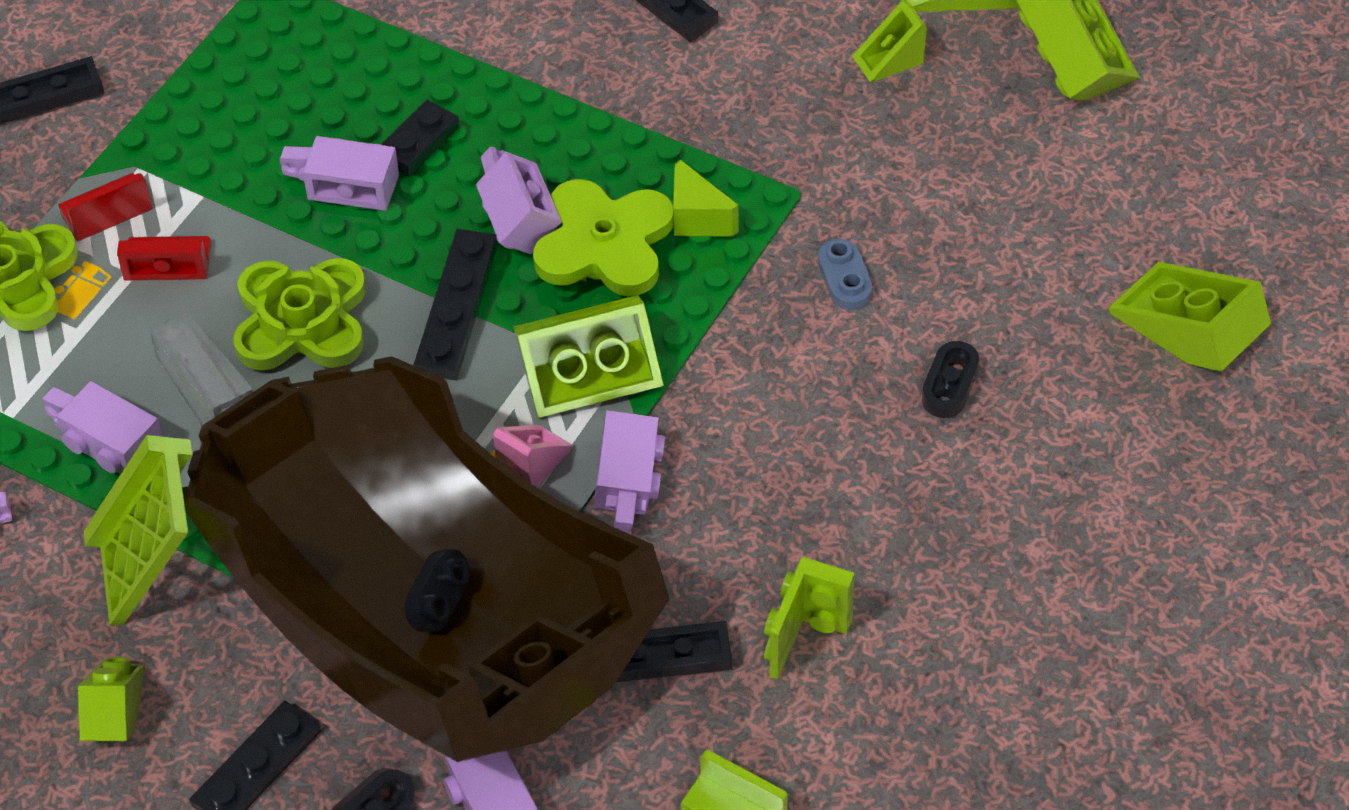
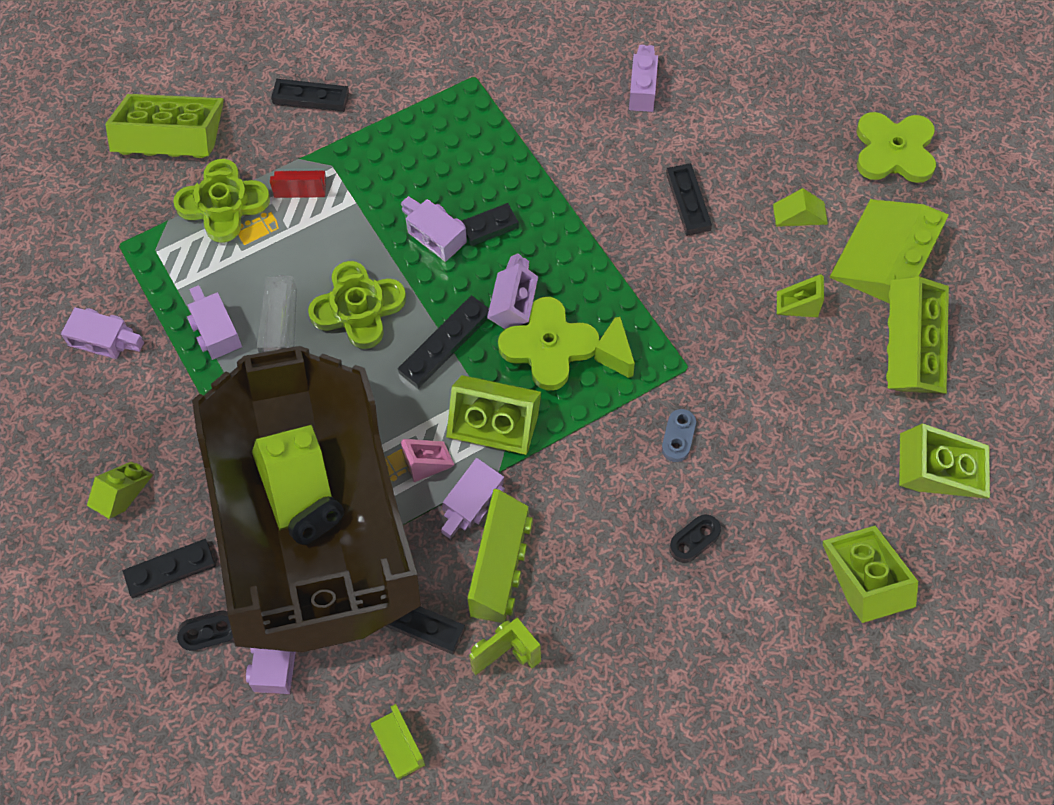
camera: 30 degrees right, 10 degrees up
(140, 523) = (183, 386): lime fence -> none
(164, 257) = (310, 231): red panel -> none
(364, 542) = (291, 472): none -> lime slope
(718, 520) = (499, 558): none -> lime slope
(1190, 151) = (943, 463): none -> lime slope

